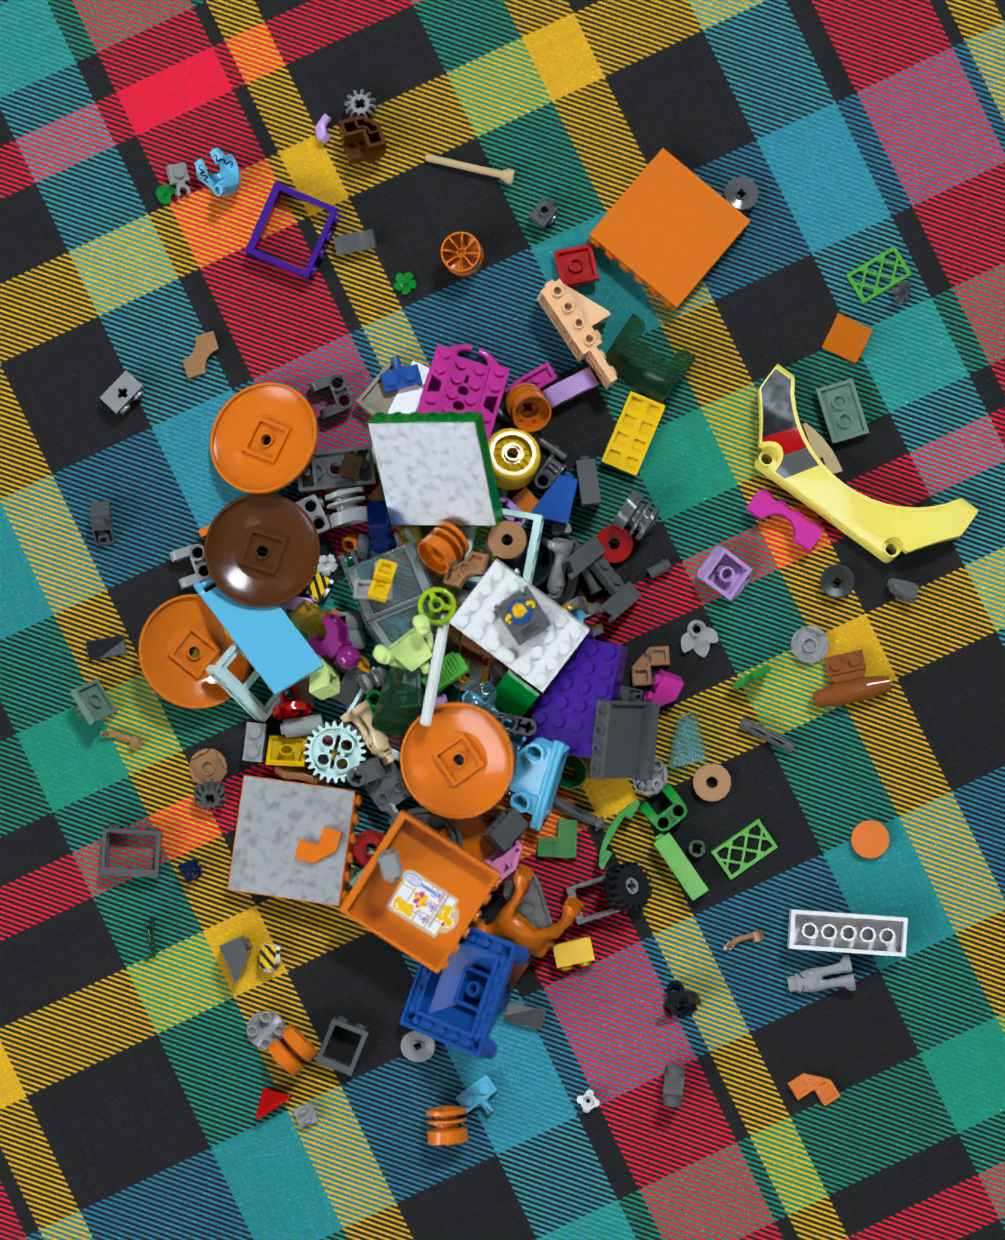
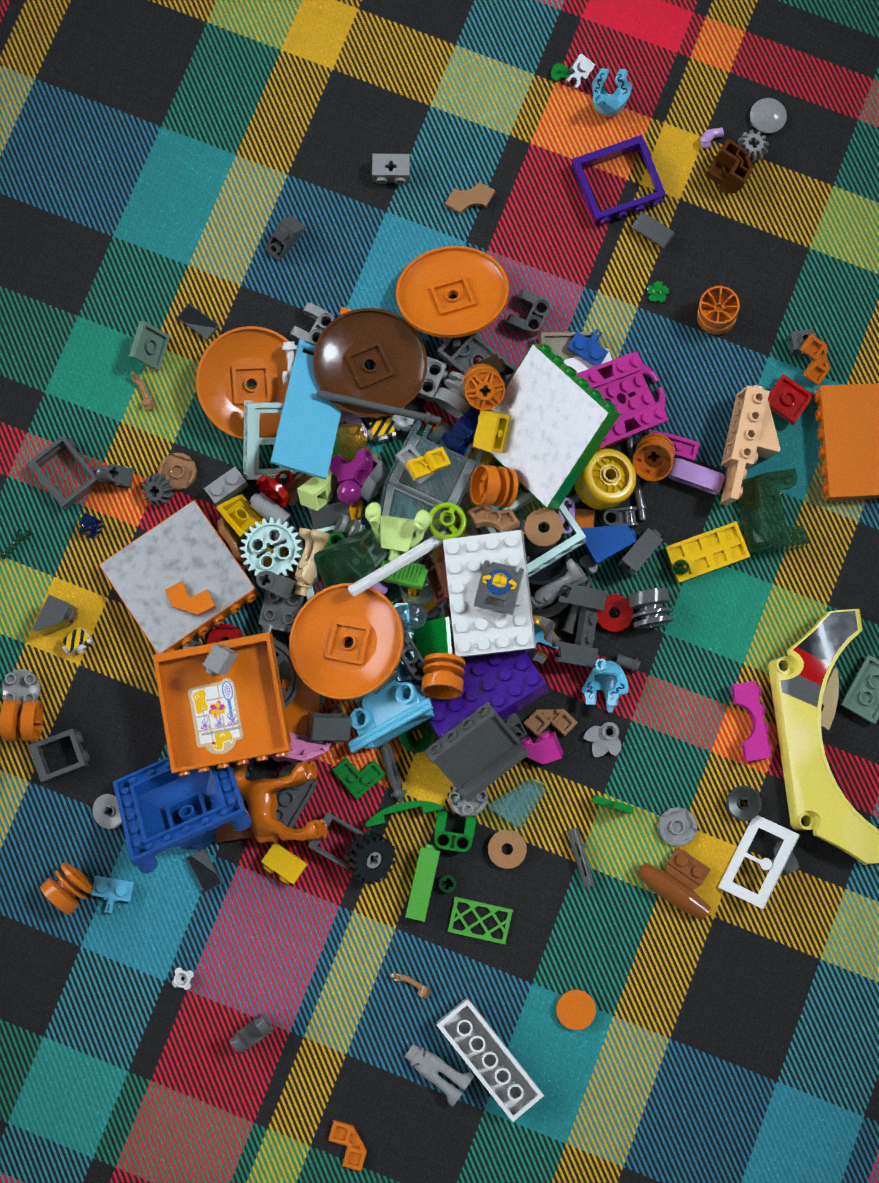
camera: 45 degrees right, 5 degrees down
(169, 816) = (115, 475): none -> dark grey piece
(193, 599) = (288, 346): none -> white hinge
(344, 547) = (379, 407): none -> dark grey bar
(347, 70) = (768, 115): none -> light grey dish
(352, 485) = (476, 379): none -> orange wheel
(399, 510) = (491, 431): none -> yellow brick
(505, 175) = (803, 291): tan piece -> none
(548, 714) = (443, 676): none -> orange wheel
(573, 218) = (819, 365): none -> orange tile
(628, 468) = (681, 571): none -> dark green hinge
(659, 593) = (610, 679): none -> medium azure piece
(682, 1003) = (320, 981): black tile -> none
(725, 573) = (670, 714): lavender slope -> none
(903, 604) = (775, 868): none -> white door

